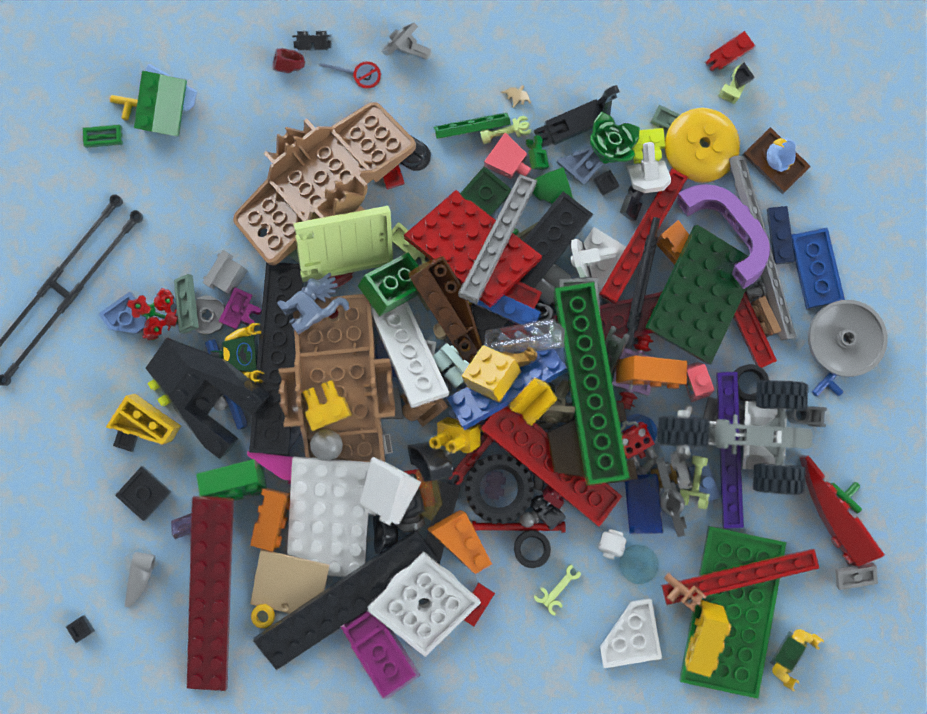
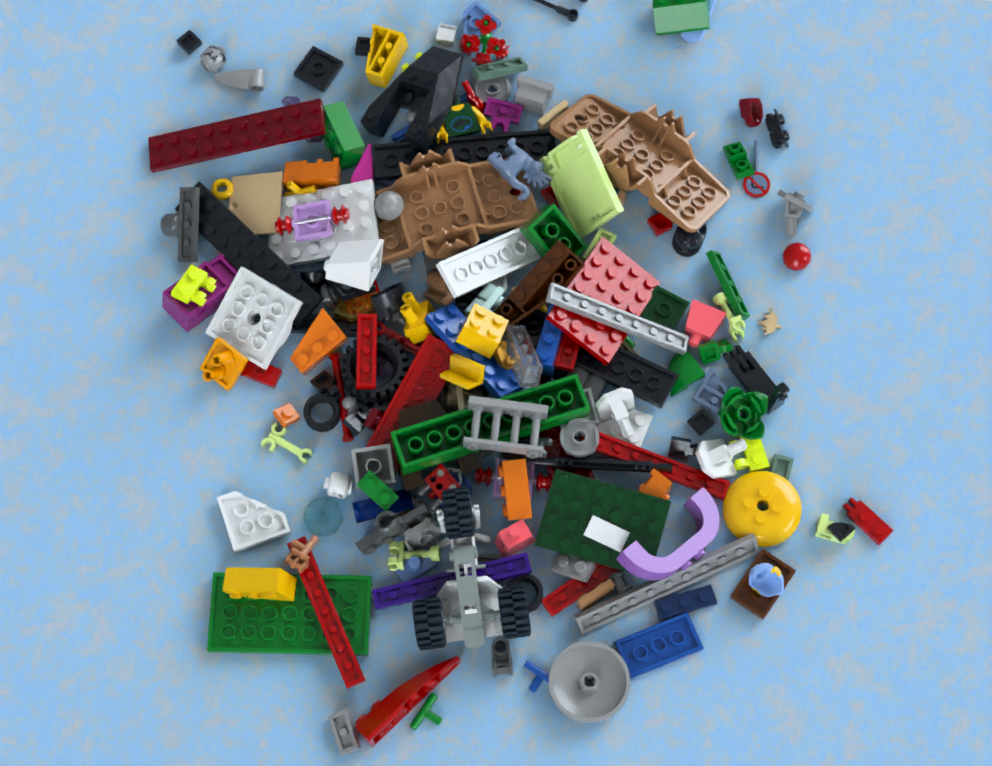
camera: 80 degrees right, 15 degrees down
(107, 605) = (213, 59): none -> light grey head
(130, 351) = (446, 34): none -> white tile
(218, 337) = (472, 99): none -> red plate
(251, 258) = (545, 121): none -> tan tile
(283, 541) = (297, 190): none -> yellow piece
(300, 662) = (185, 224): none -> dark grey plate
(325, 414) = (418, 199): yellow brick -> none
(327, 527) = (312, 220): none -> lavender plate
(338, 86) = (738, 161): none -> green slope
(378, 667) = (188, 286): none -> neon yellow plate
(453, 53) = (796, 256): none -> red hair
(465, 643) = (223, 364): none -> light orange plate
(486, 494) = (366, 351): none -> red plate
(503, 541) = (326, 383): none -> black plate
(528, 585) = (286, 415): none -> orange plate
(584, 372) = (517, 410): none -> light grey fence
(608, 507) = (378, 460): none -> light grey brick
(623, 292) = (587, 445): none -> light grey plate
(637, 507) = (377, 490): none -> green plate
(718, 290) = (606, 533): none -> white sticker
(736, 330) = (573, 567): none -> light grey plate
(790, 653) = (256, 672): torso -> none

